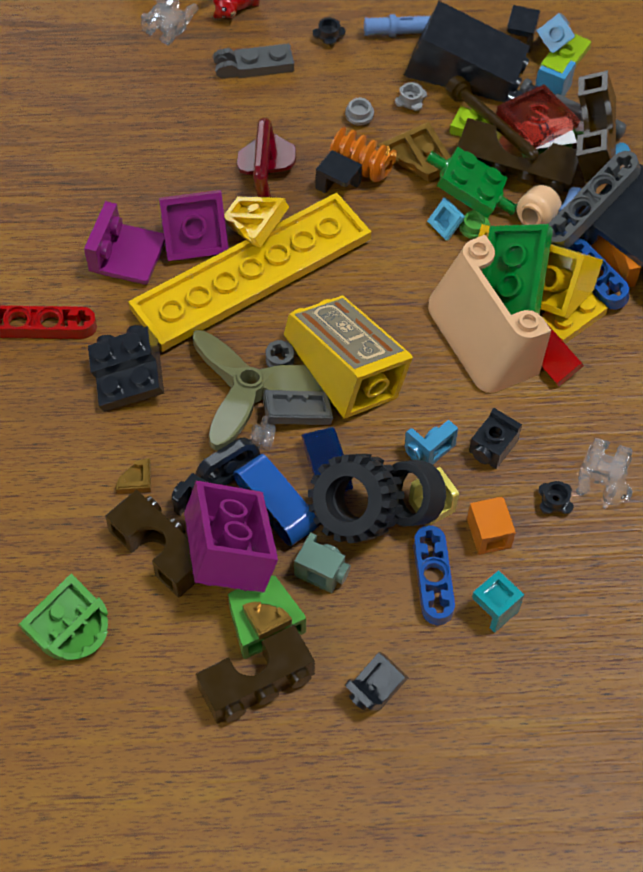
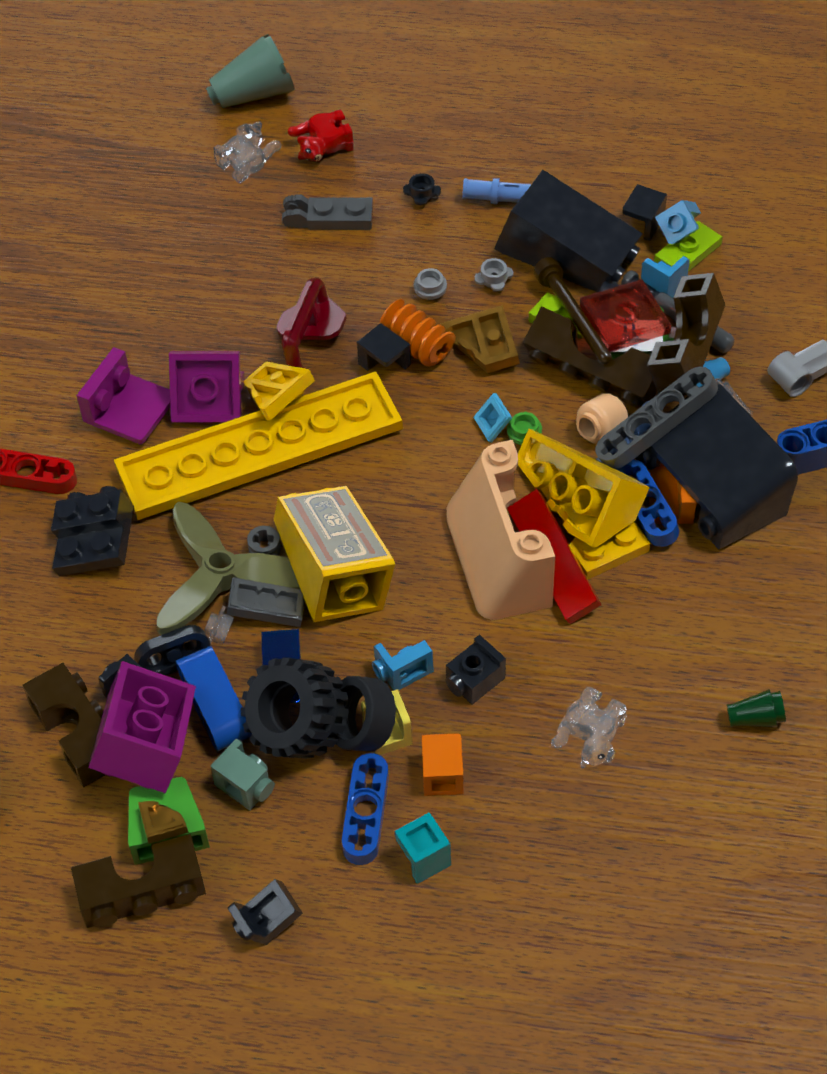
camera: 15 degrees right, 5 degrees down
(135, 478) = (73, 652): pearl gold tile -> none
(472, 182) = (530, 380): green plate -> none
(519, 264) = (547, 482): green plate -> none
(555, 489) = (531, 737): black plate -> none

